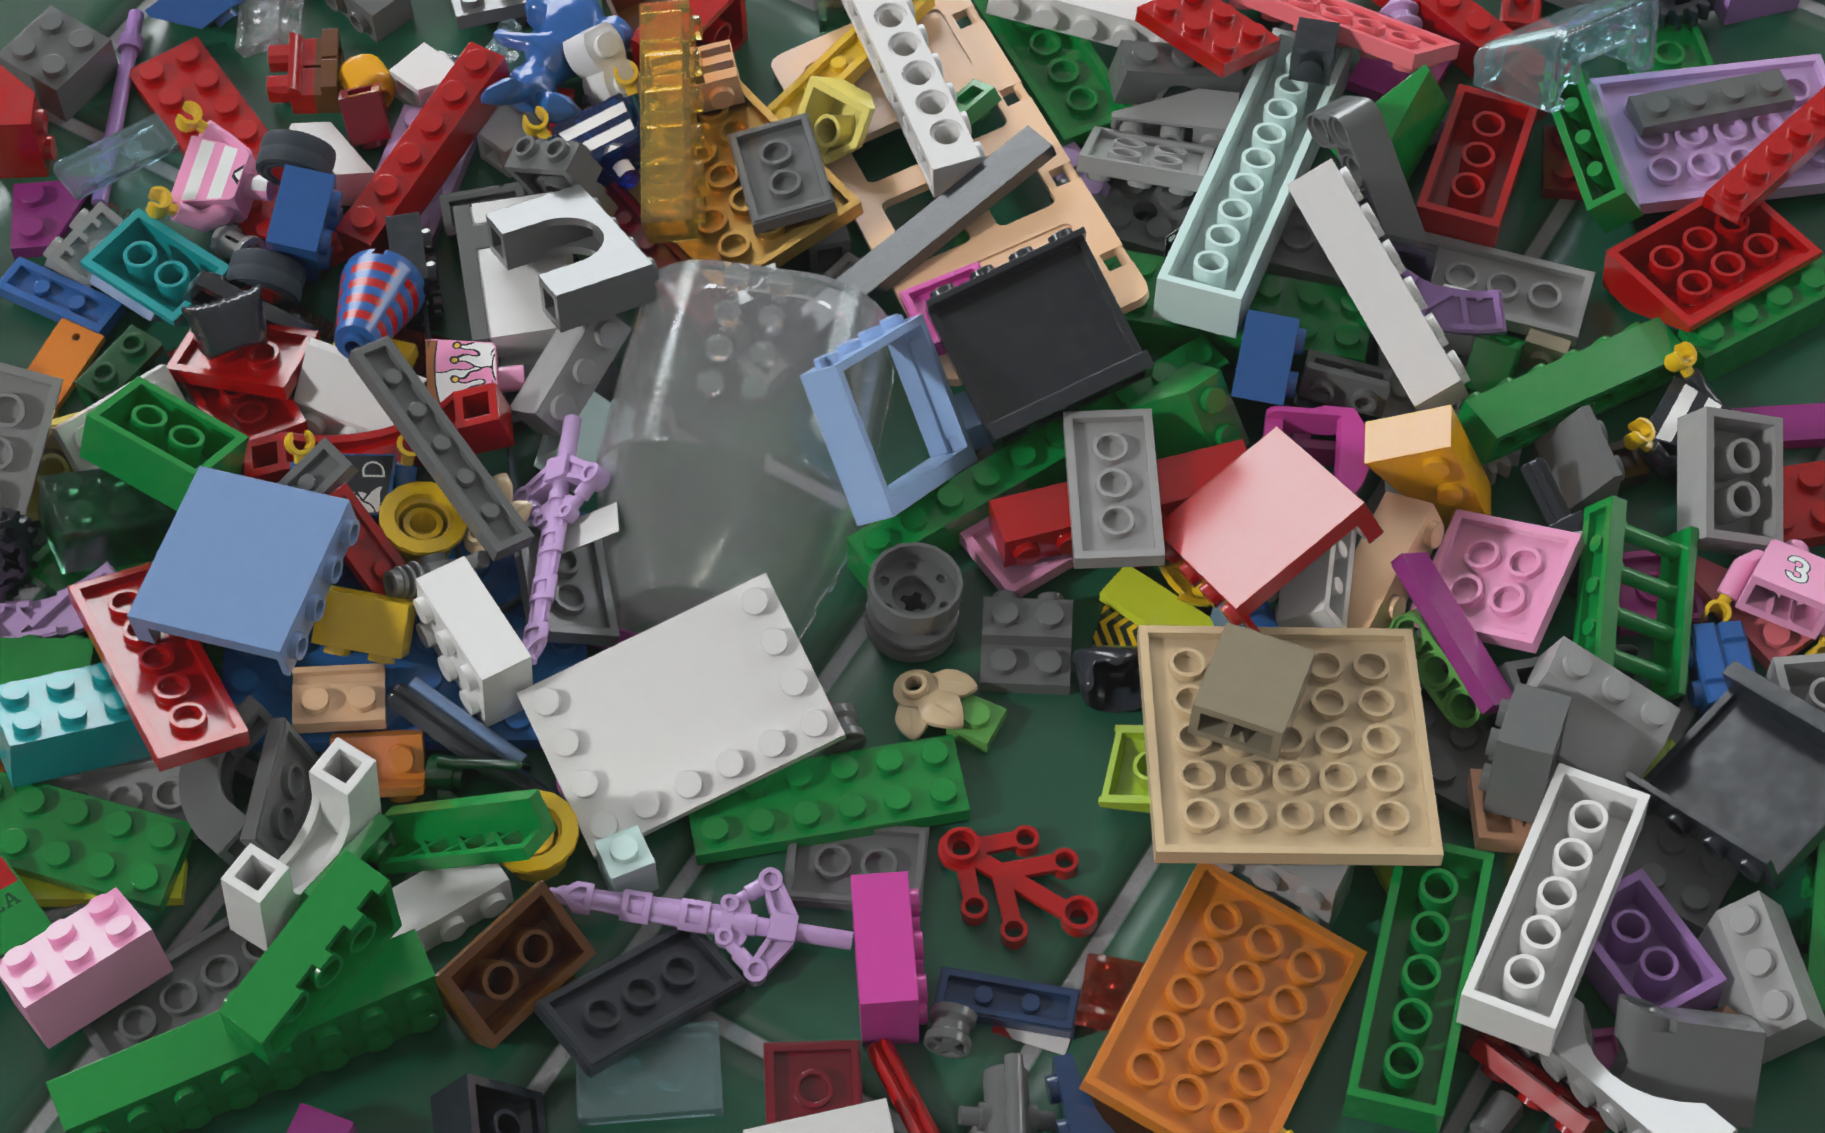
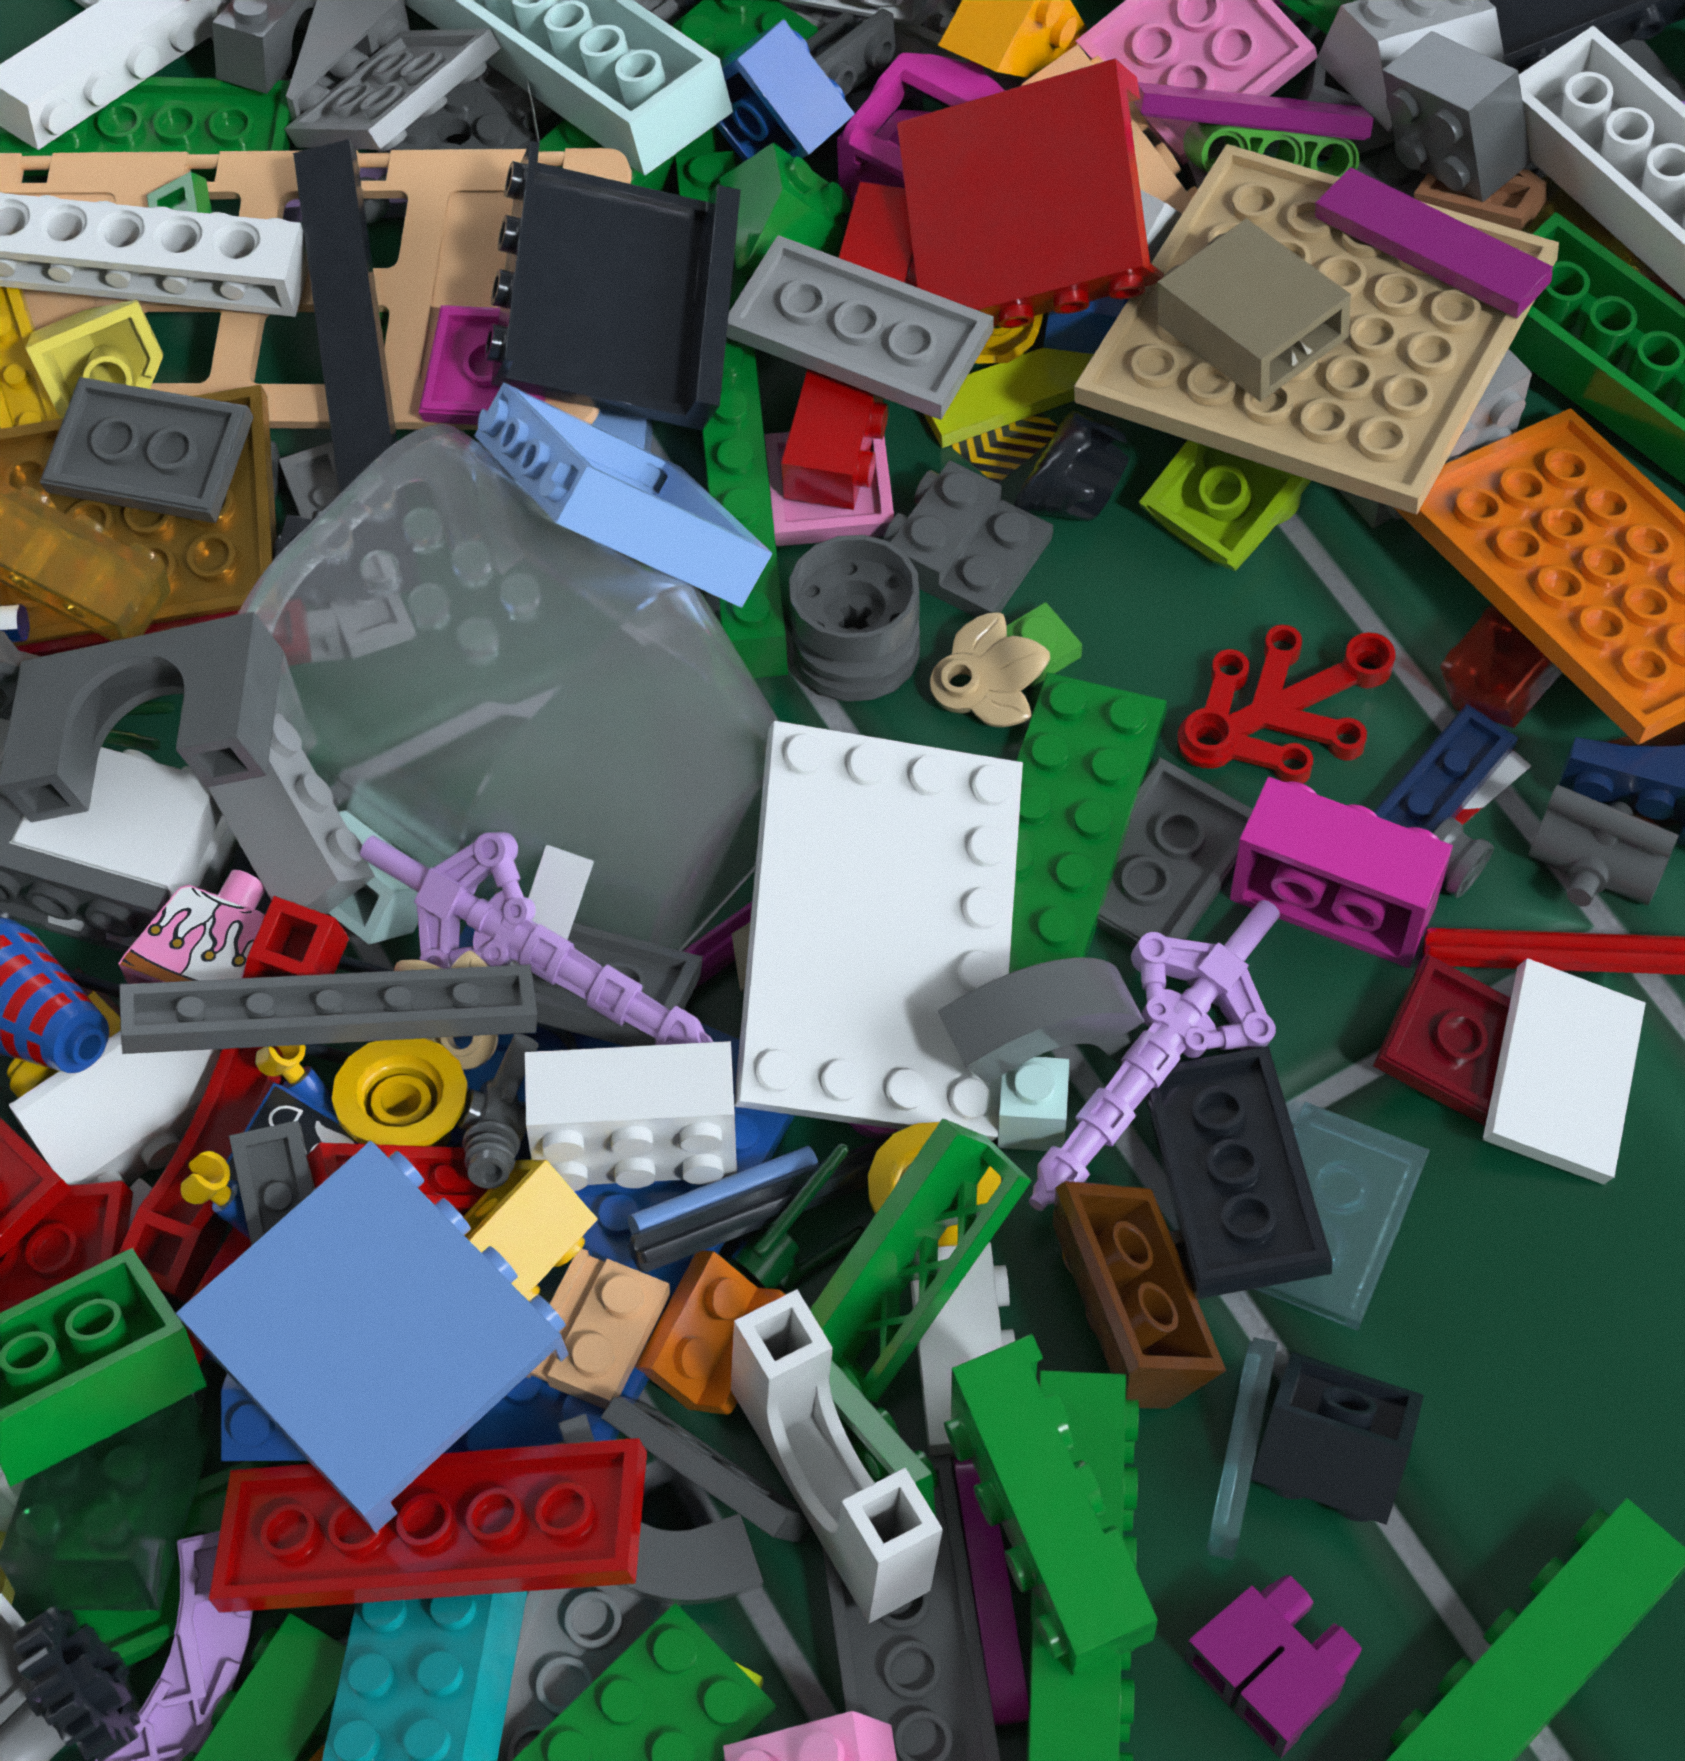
camera: 60 degrees left, 5 degrees up
(413, 1094) = (1241, 1448): none -> clear light blue tile
(673, 828) = (1042, 1011): none -> dark grey arch
(1388, 777) = (1434, 242): none -> magenta tile

